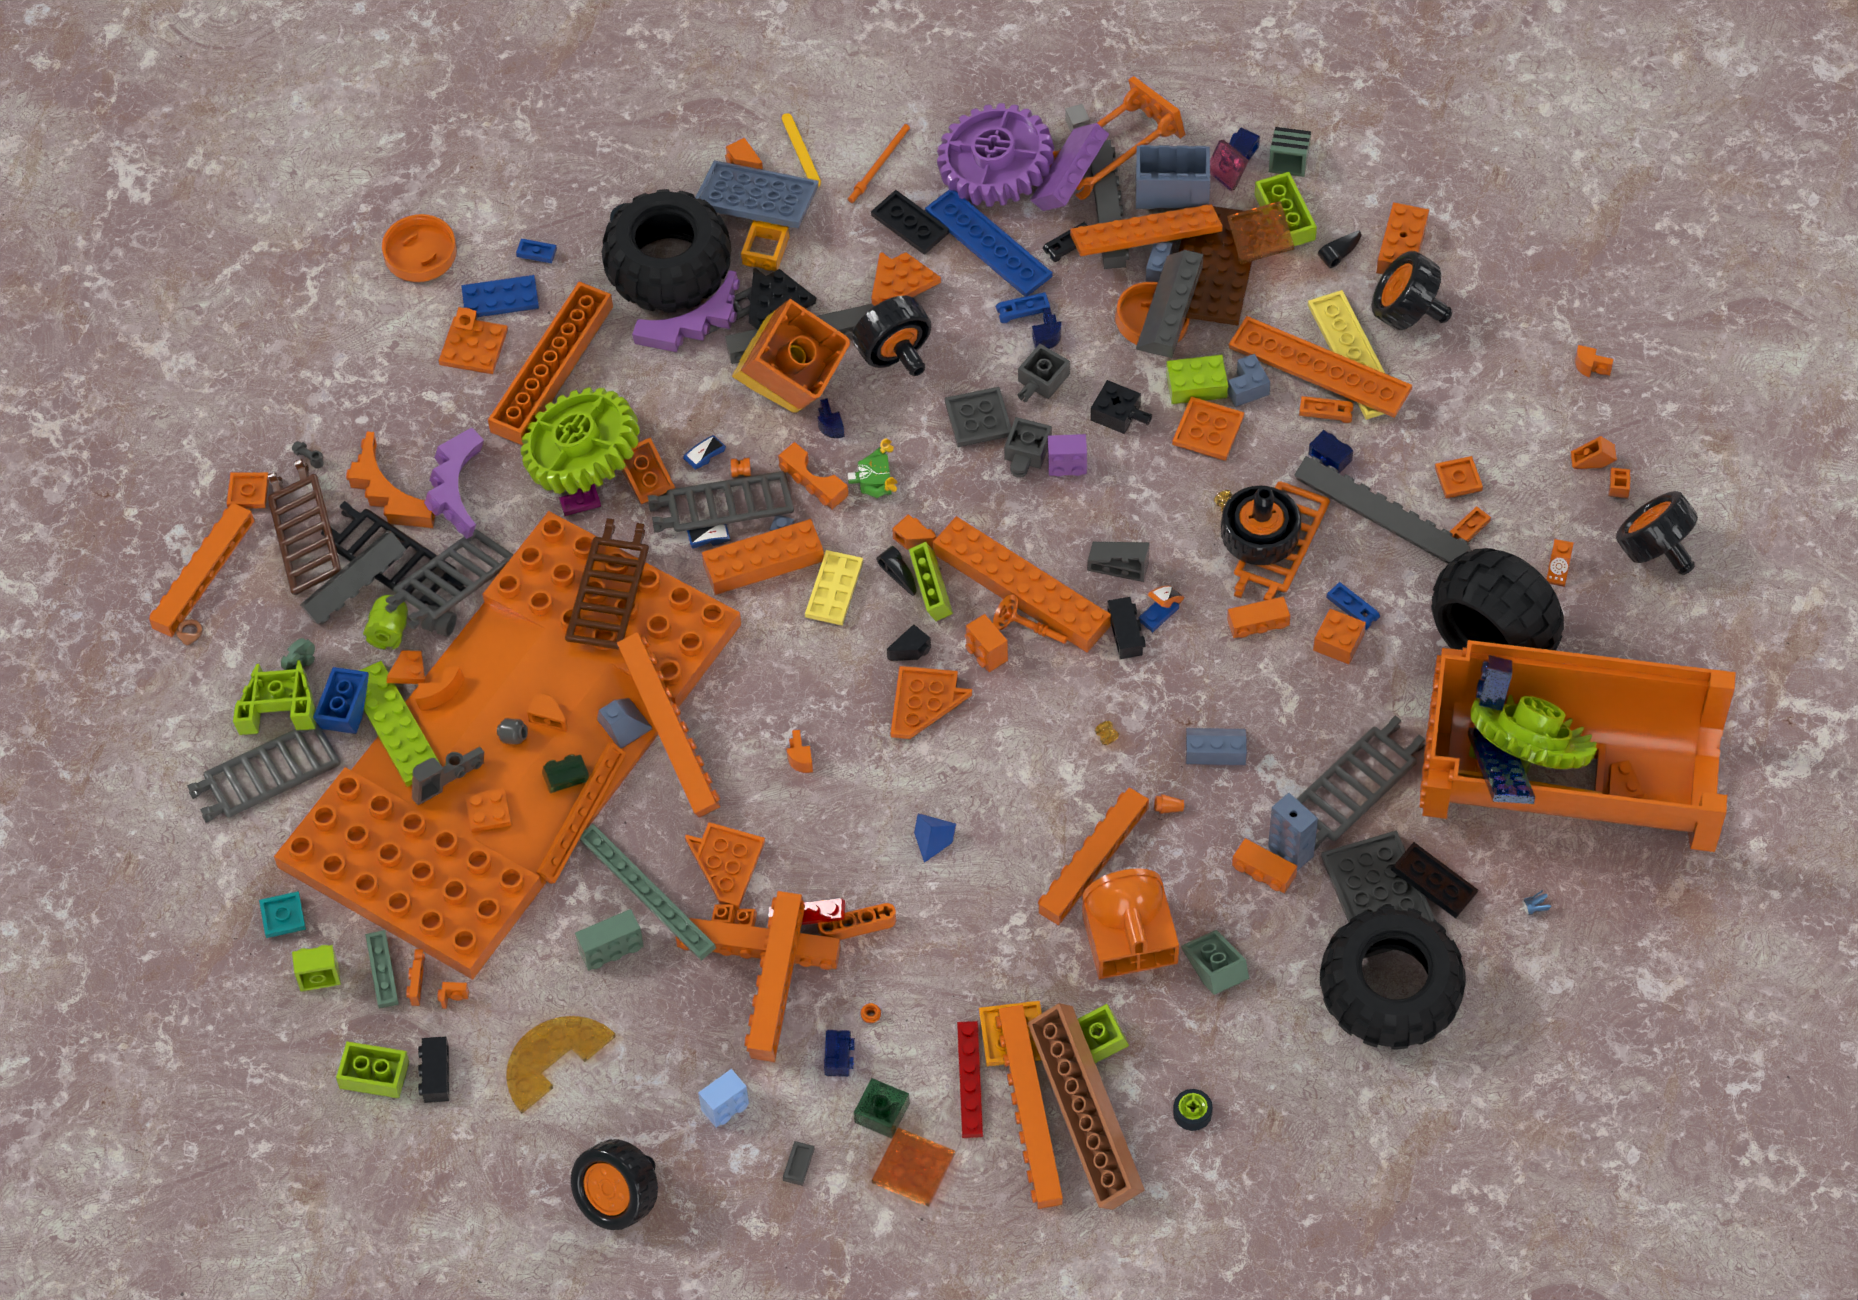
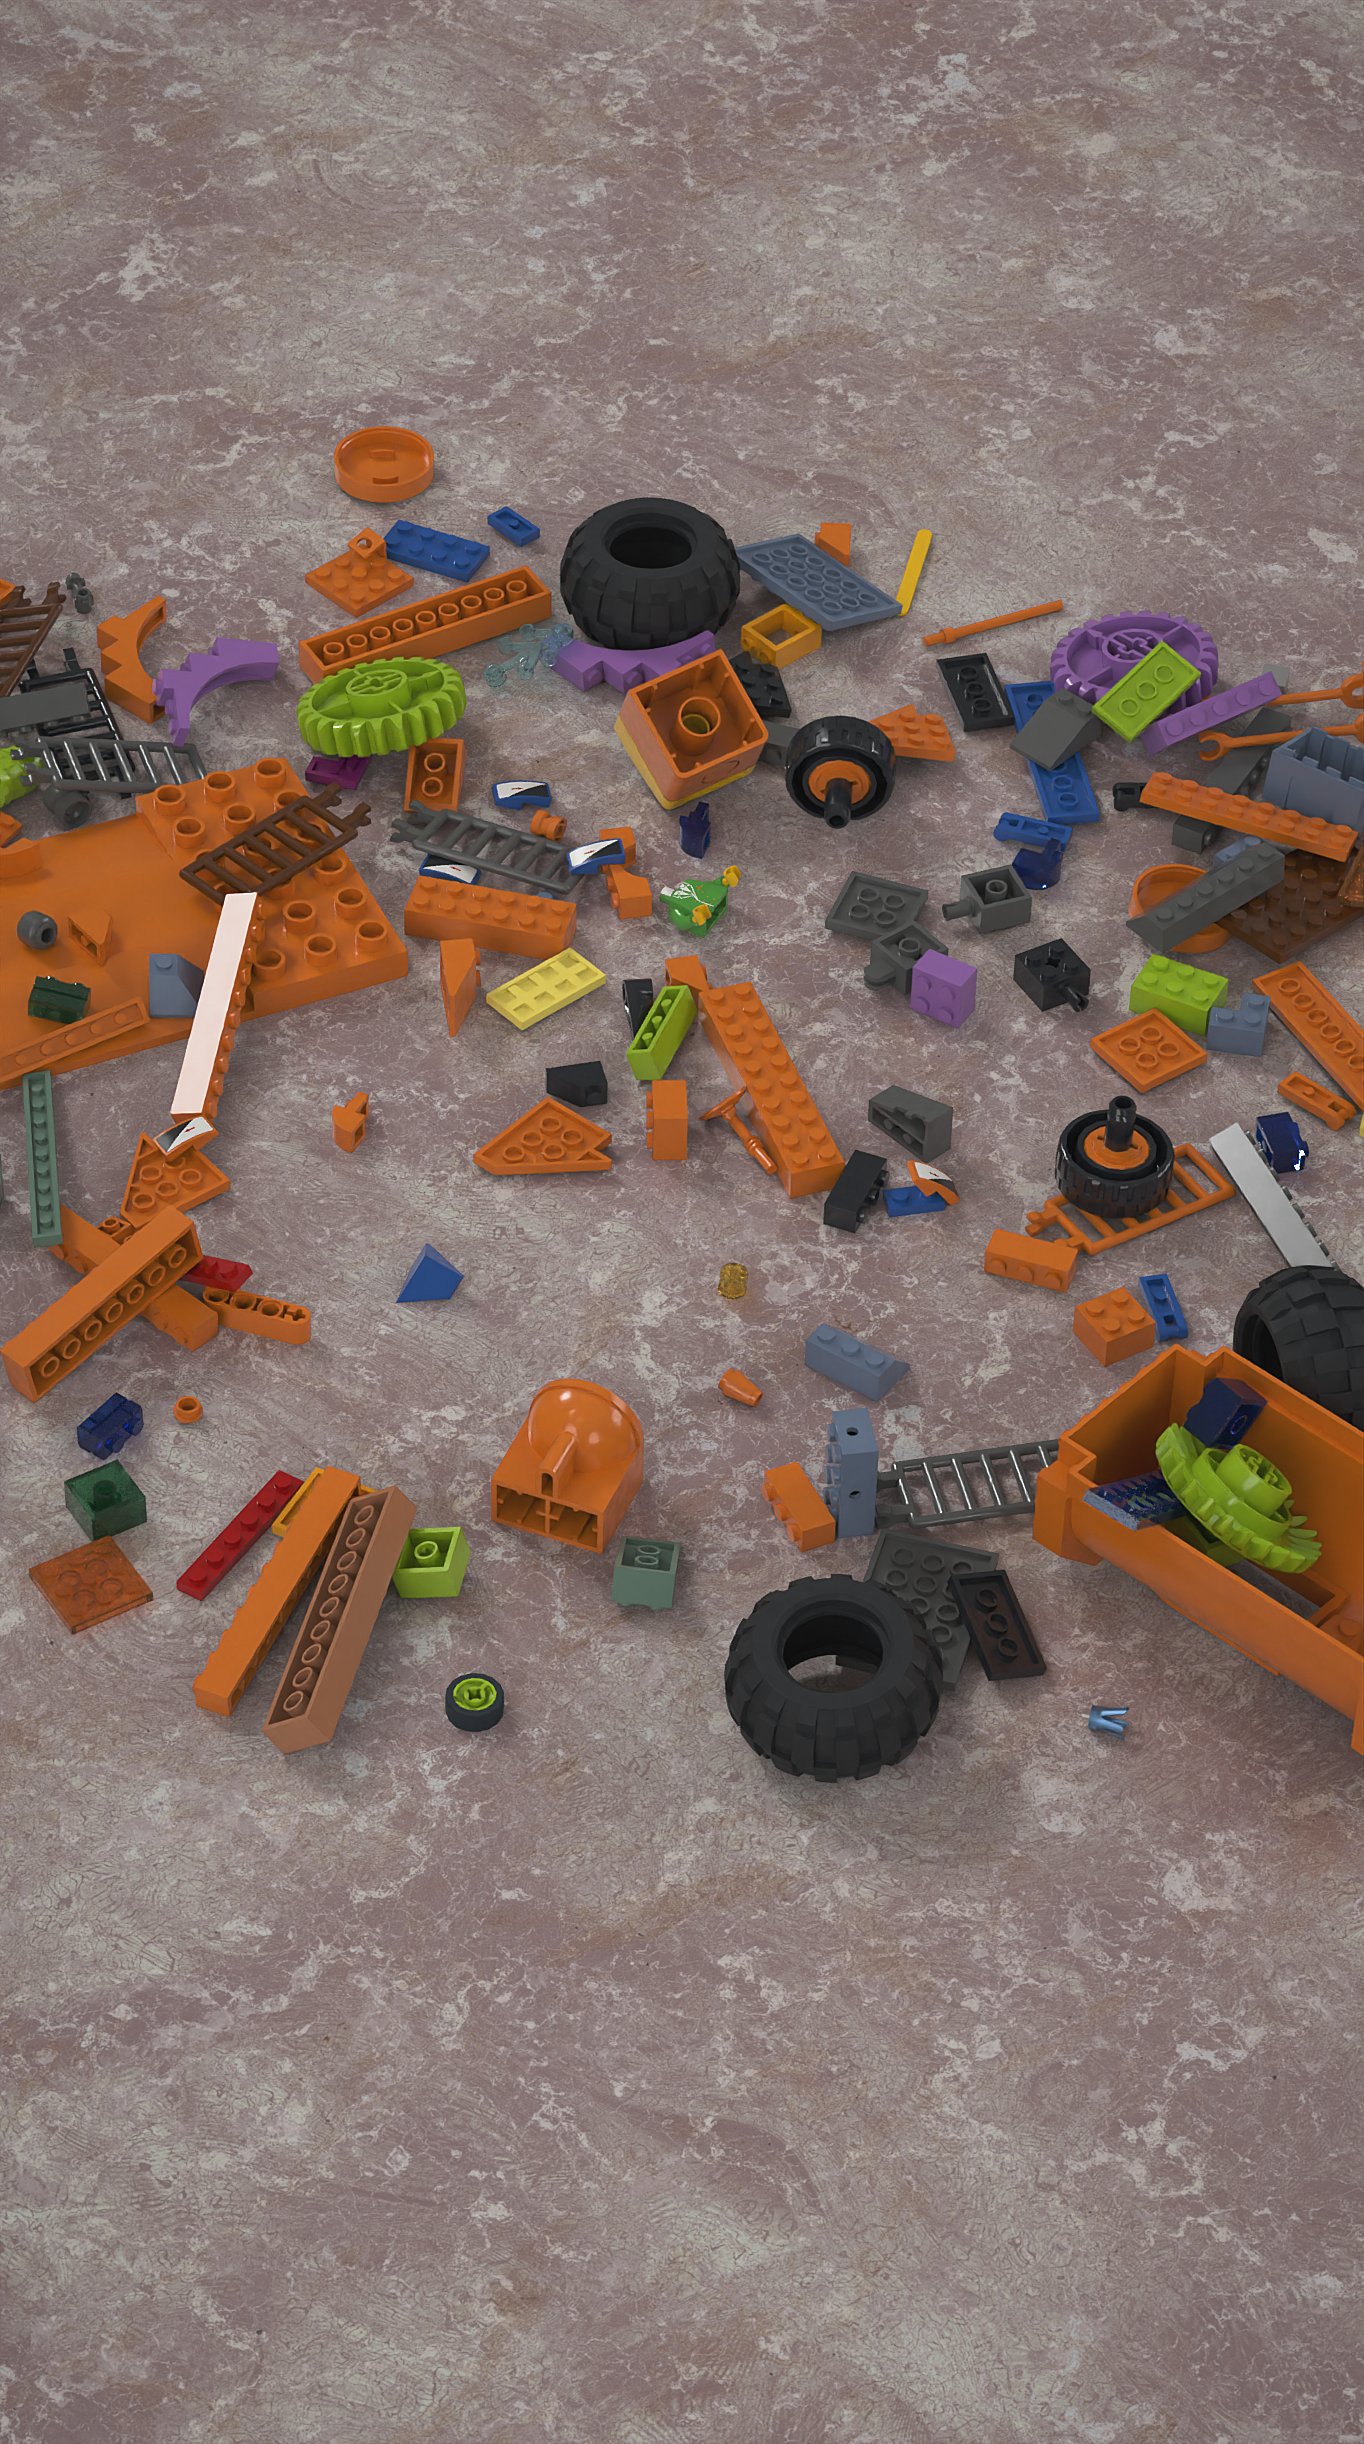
camera: 30 degrees right, 15 degrees down
(630, 343) = (557, 637): none -> clear light blue plant
(716, 824) = (188, 1133): none -> slope
(783, 616) = (458, 979): none -> orange slope
(792, 475) = (588, 857): none -> slope
(987, 227) = (1058, 730): none -> dark grey slope
(1029, 175) = (1146, 692): none -> lime plate
(1093, 856) = (633, 1381): orange brick -> none

